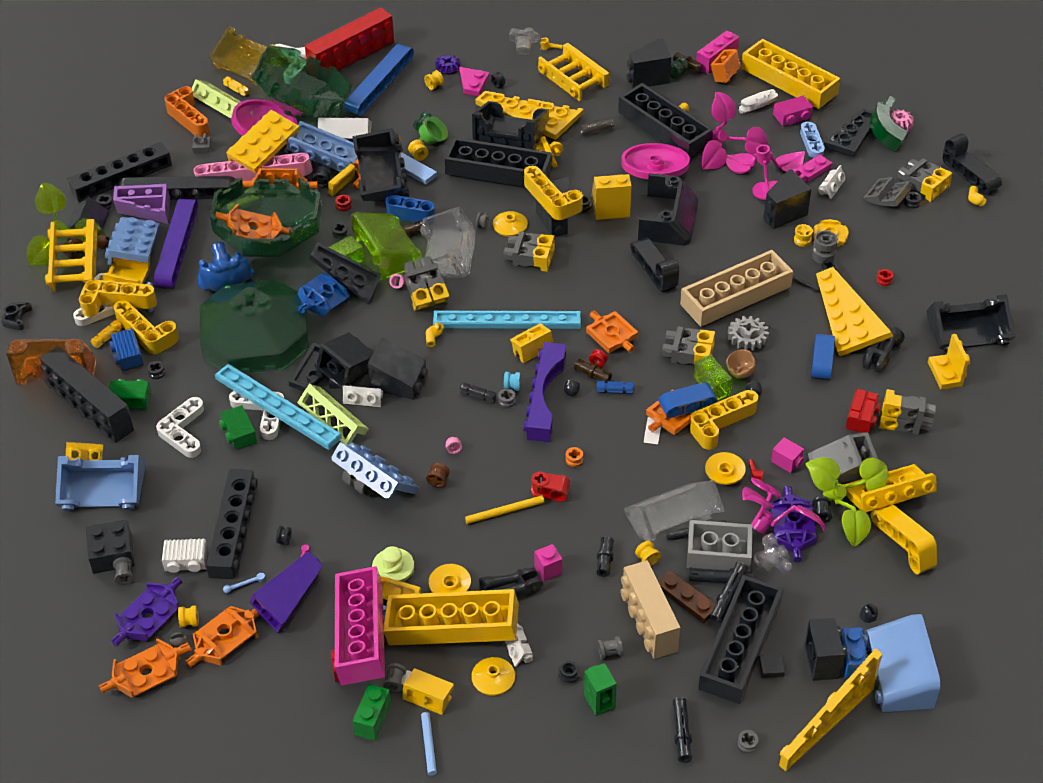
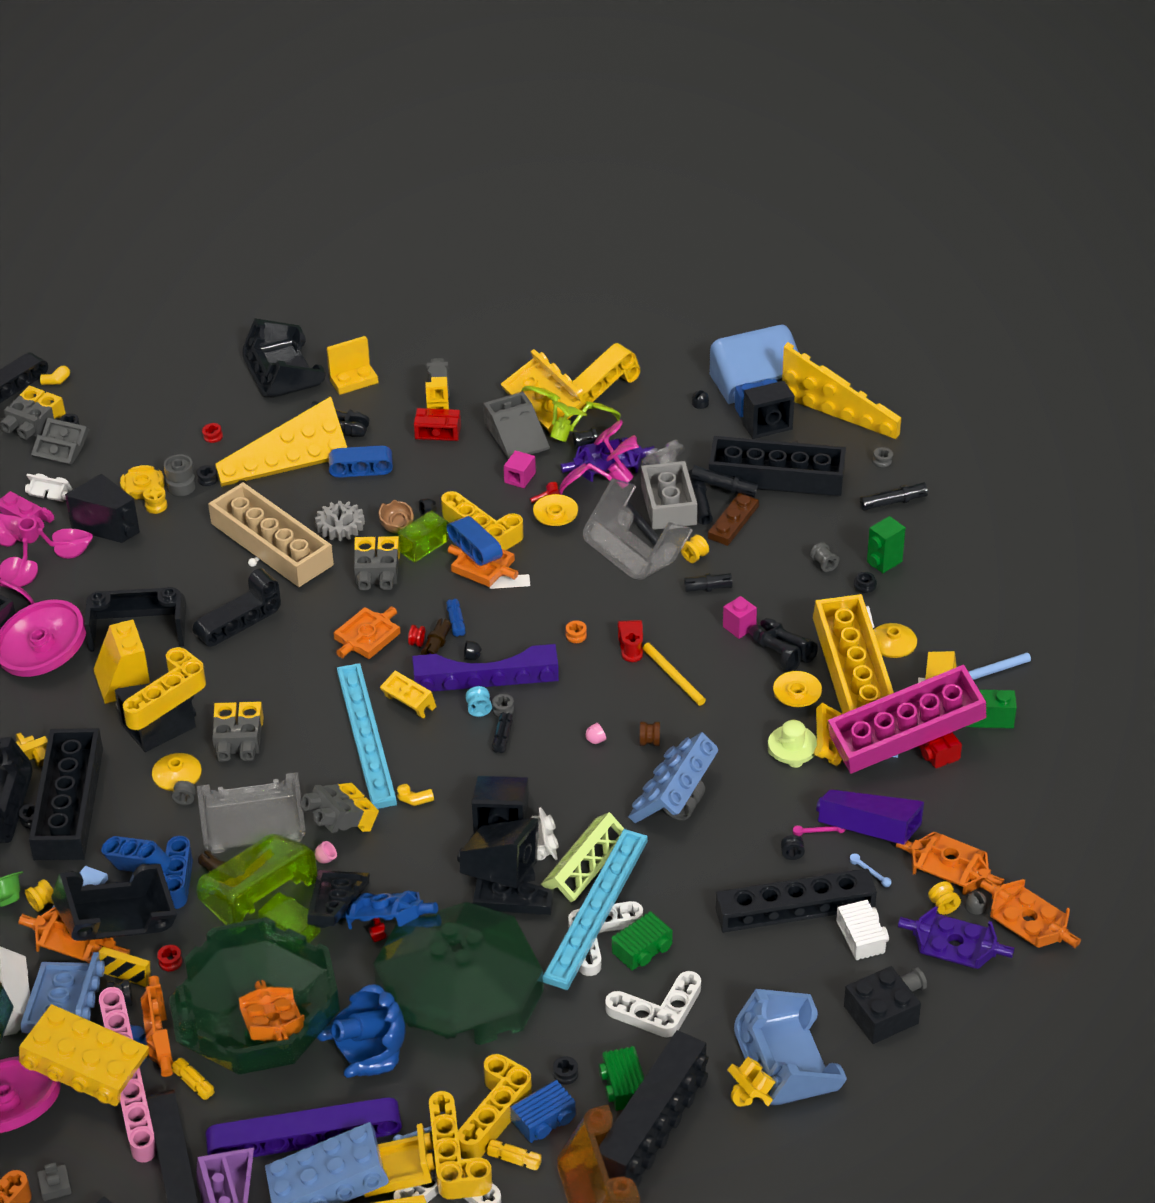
camera: 105 degrees left, 5 degrees down
(424, 186) = (130, 853): none -> blue beam
(650, 609) = (773, 526): tan brick -> none

